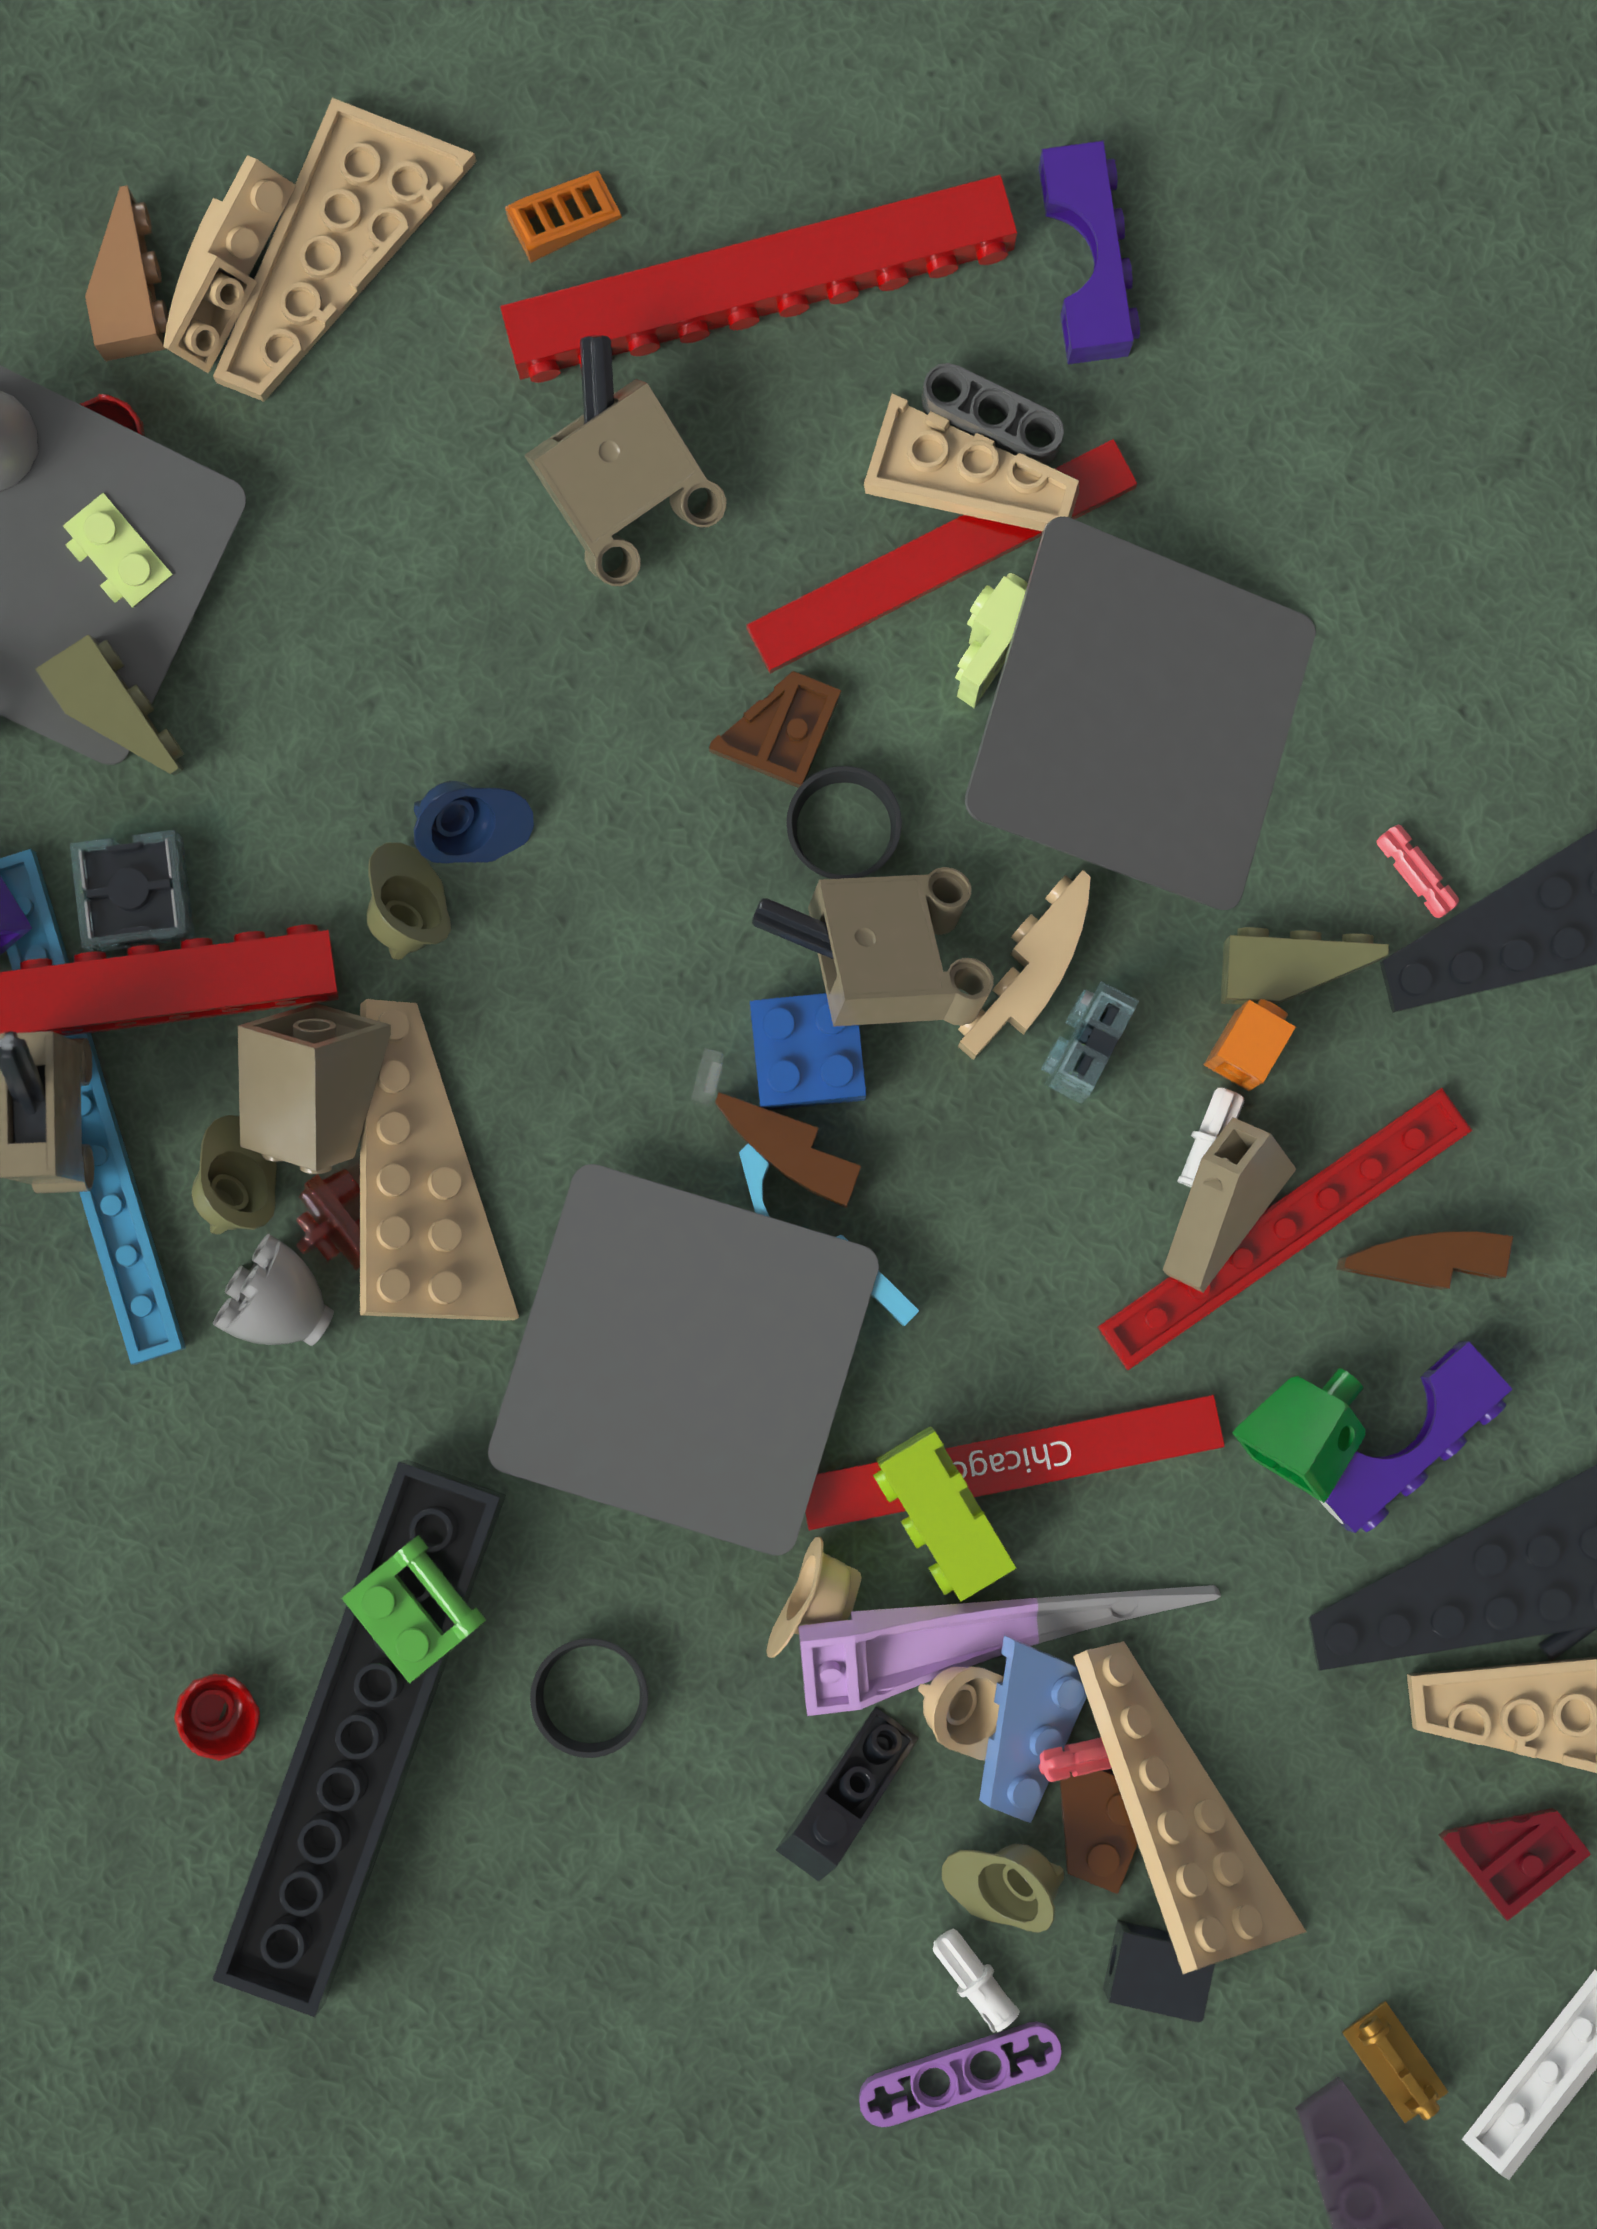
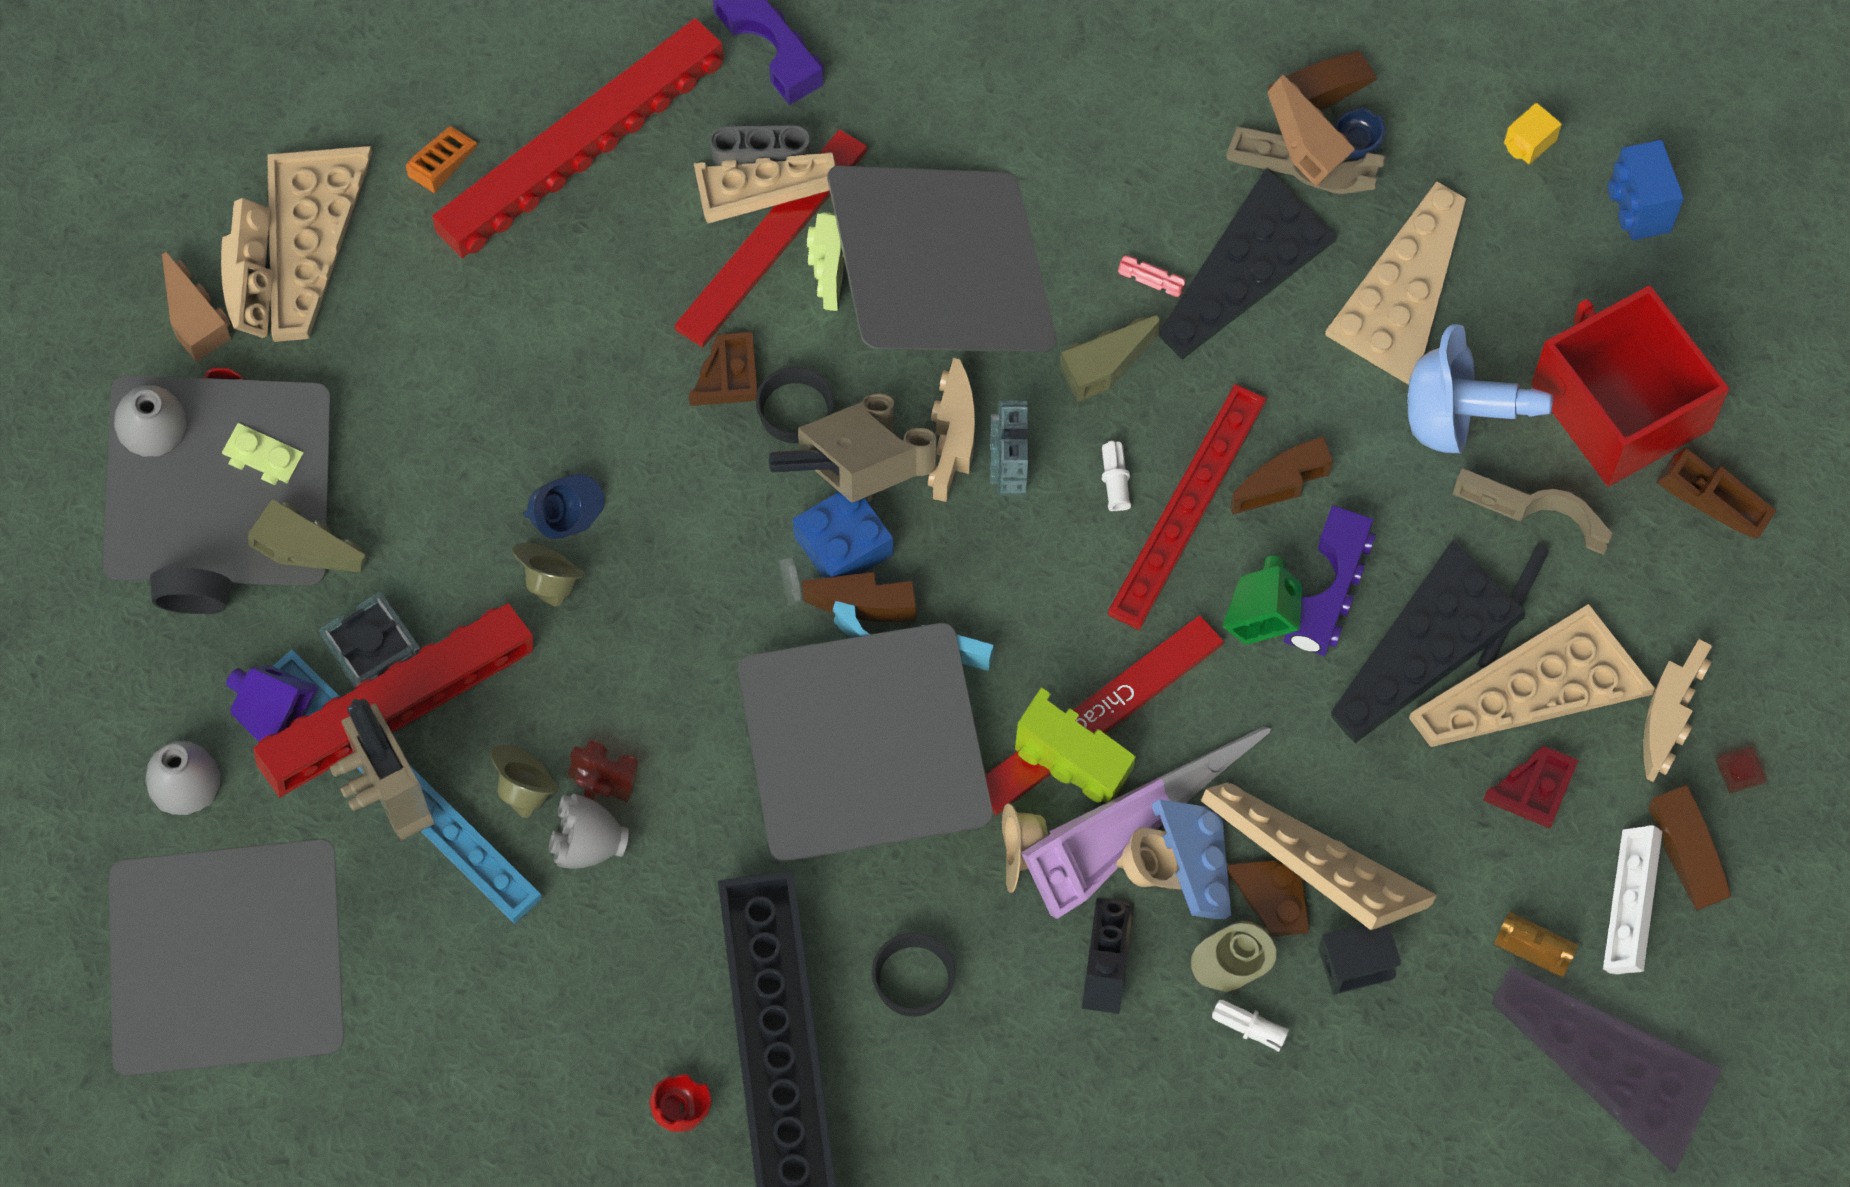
camera: 30 degrees left, 20 degrees down
(308, 1084) = (543, 696): dark tan slope -> none
(400, 1621) = (768, 969): bright green plate -> none
(420, 1209) = (650, 740): tan wing -> none
(618, 465) = (552, 264): dark tan piece -> none
(963, 2083) = (1270, 1085): medium lavender beam -> none
(1077, 1758) = (1238, 857): coral axle -> none
(1227, 1198) = (1143, 494): dark tan slope -> none
(1251, 1043) = (1107, 405): orange brick -> none

